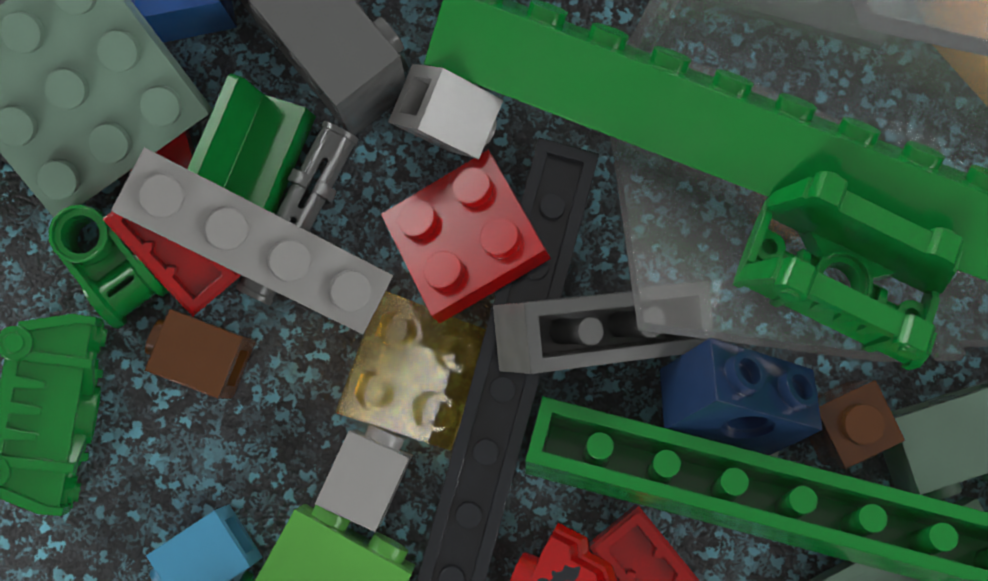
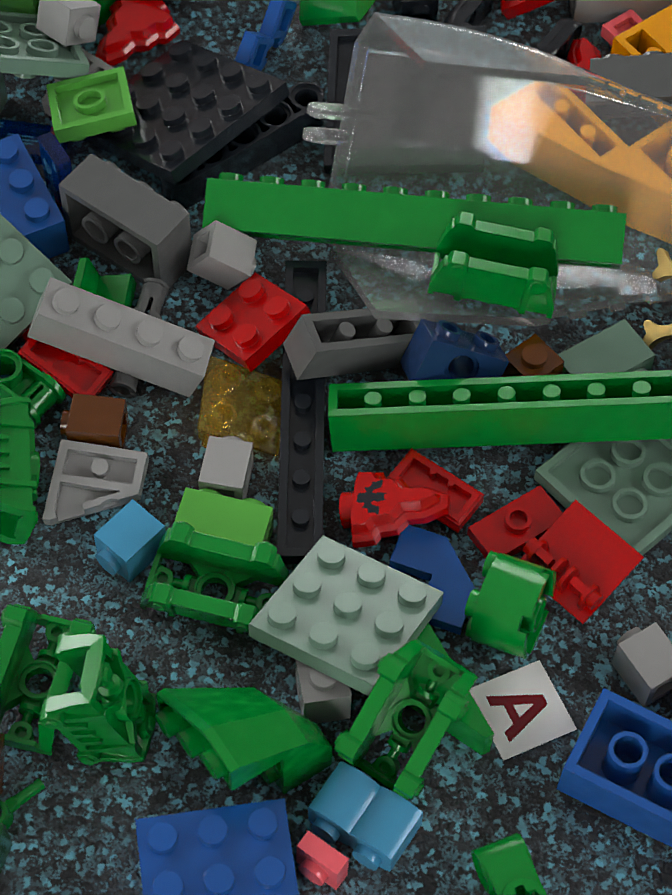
camera: 10 degrees left, 25 degrees down
(177, 437) = (93, 480): none -> light grey wing

